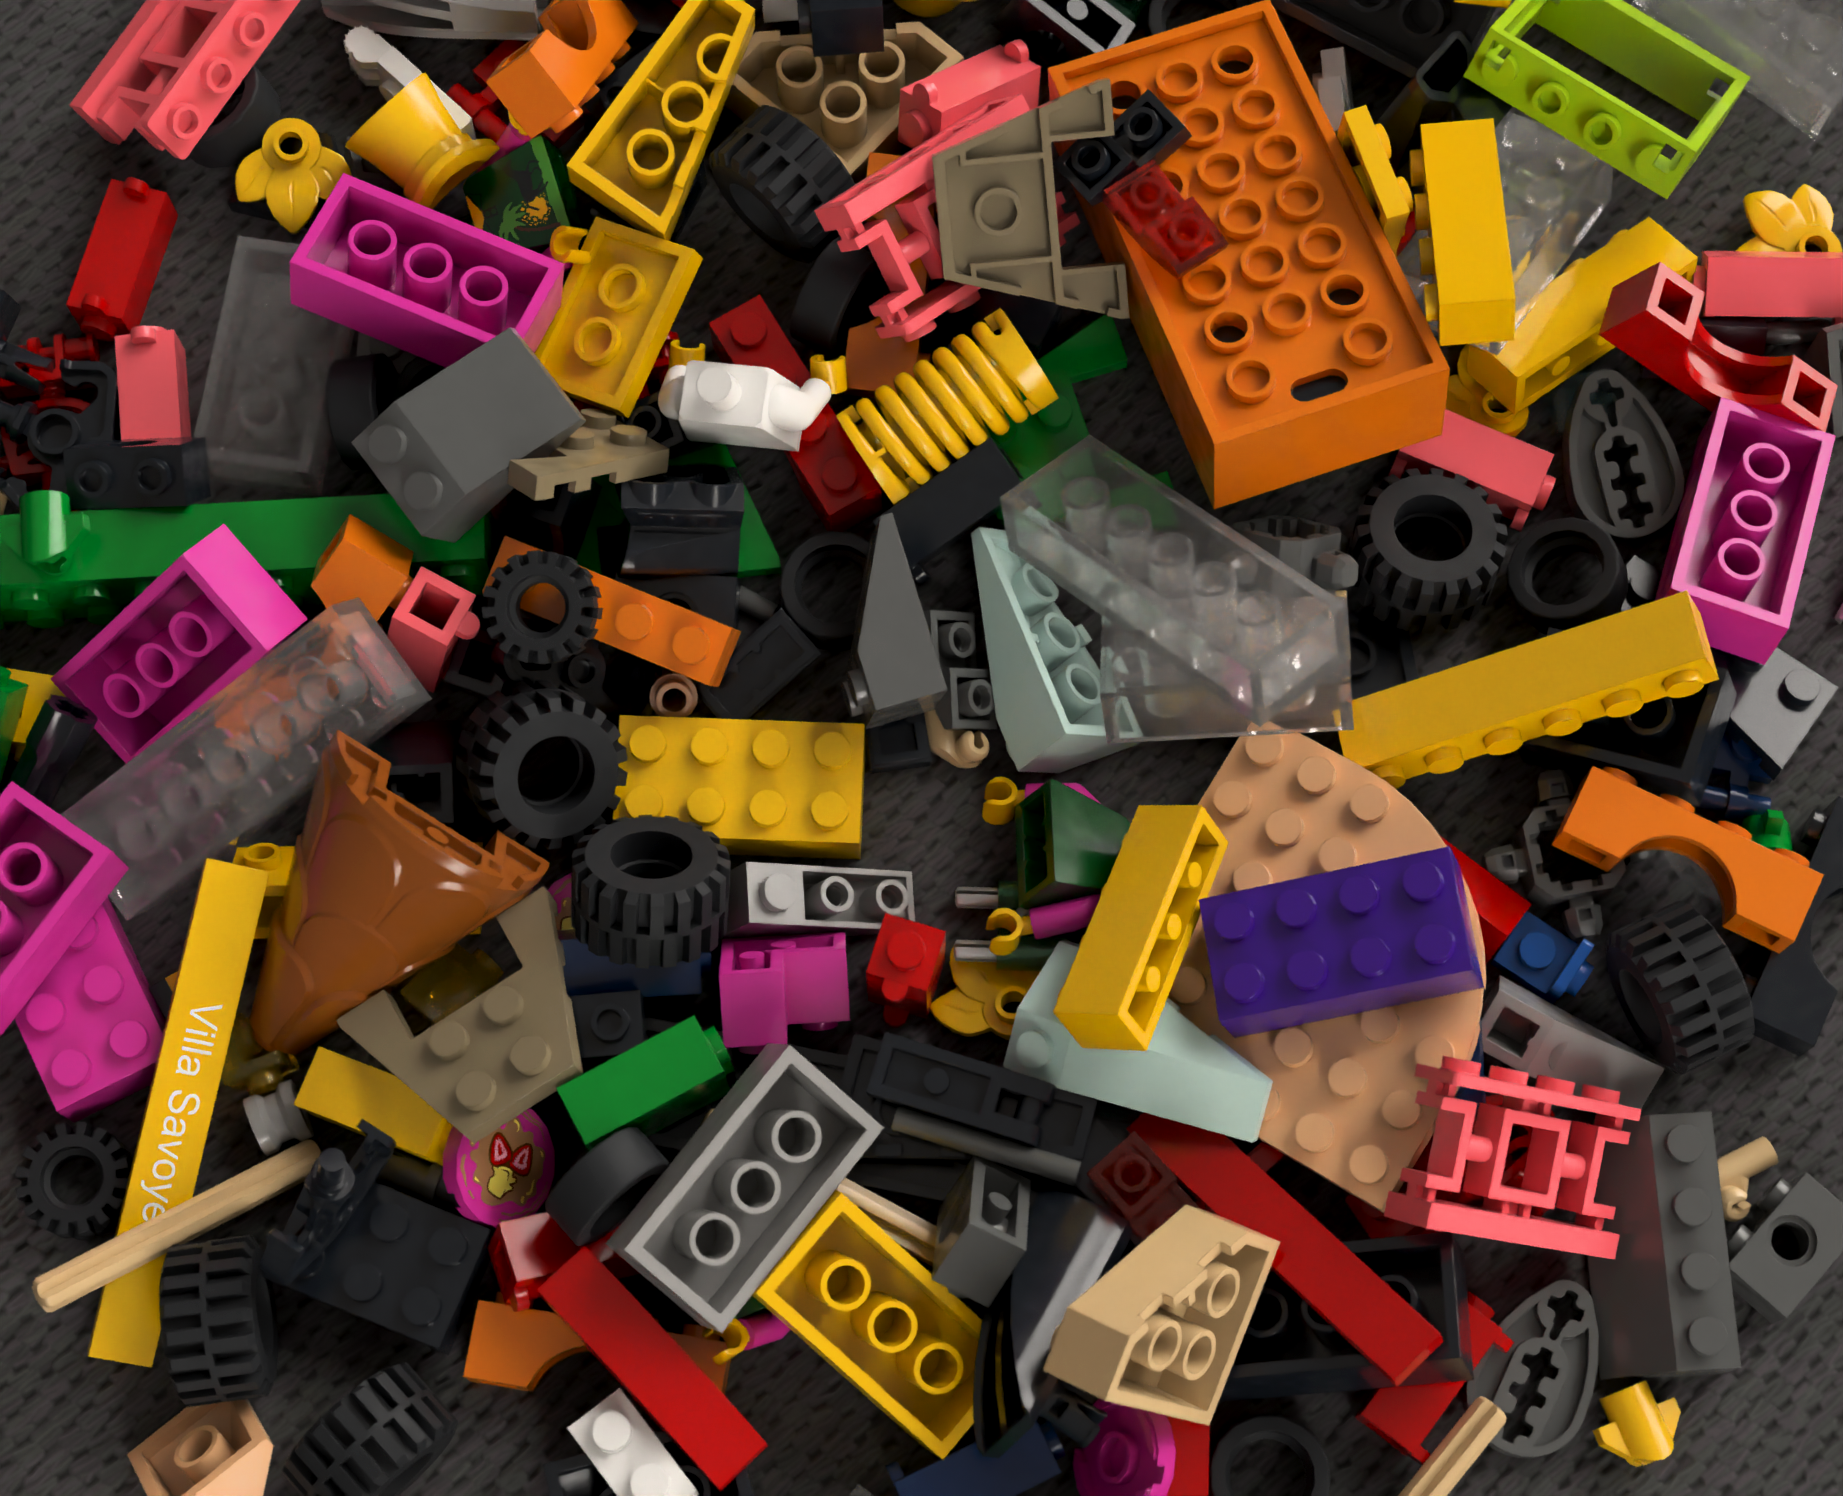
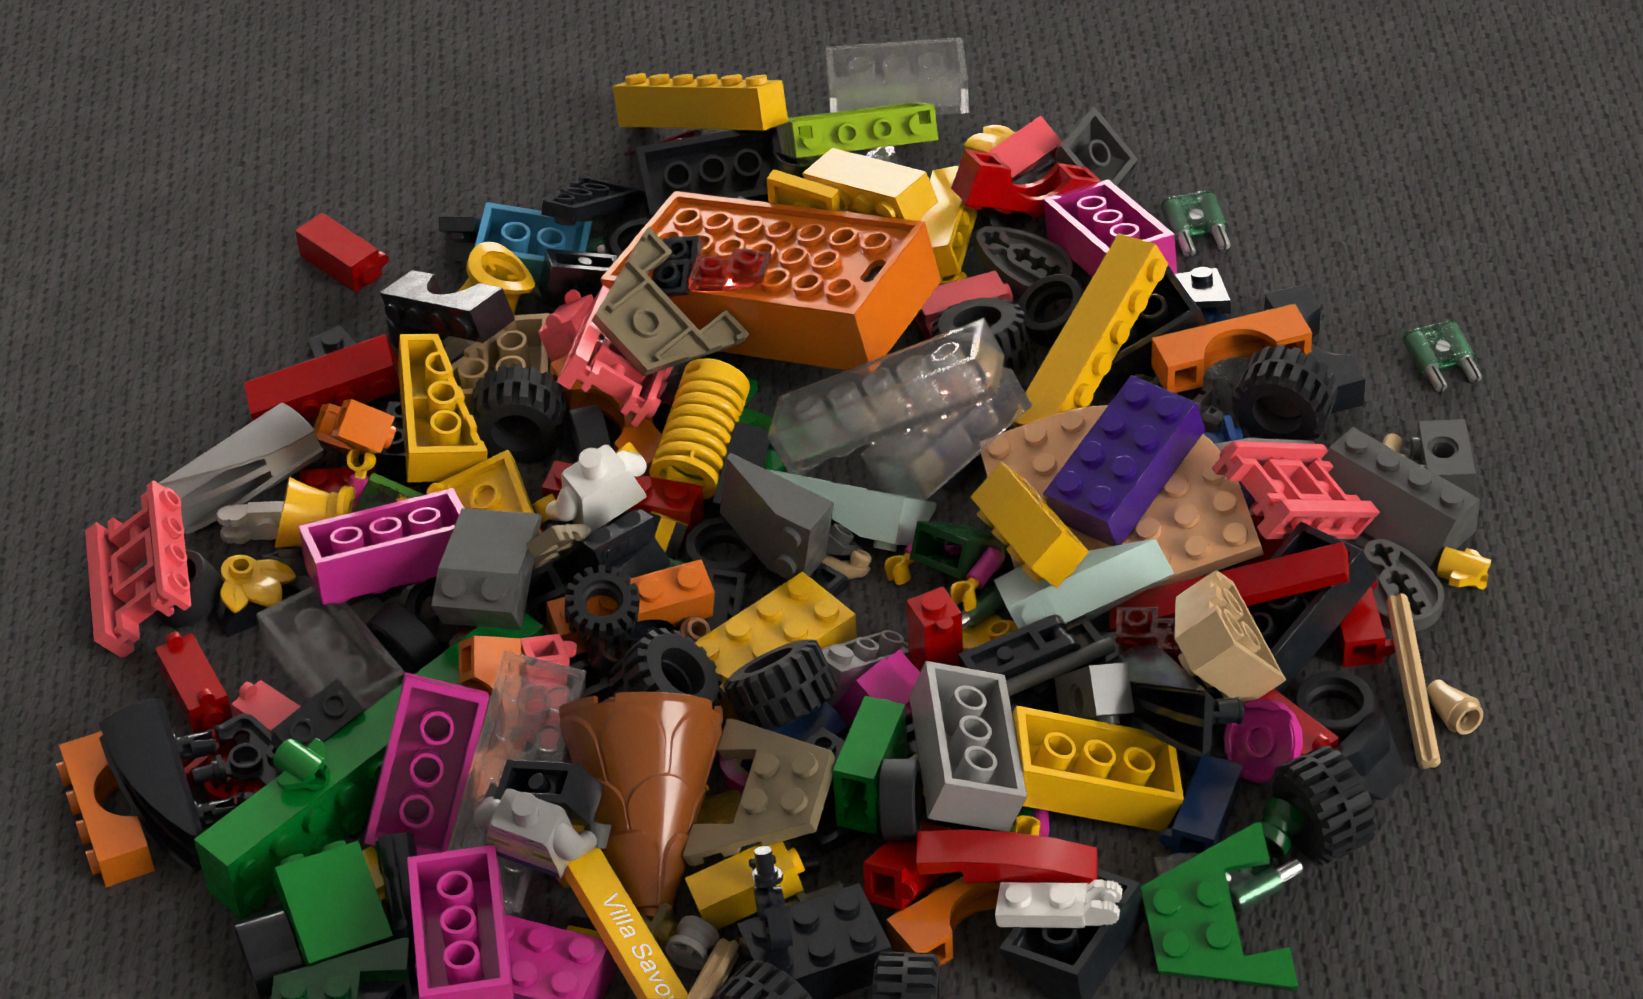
camera: 40 degrees left, 30 degrees down
(157, 873) = (535, 831): none -> light grey torso
(218, 841) = (556, 783): none -> black brick
(502, 1173) = (828, 857): tile -> none
(787, 509) = (669, 533): none -> tile

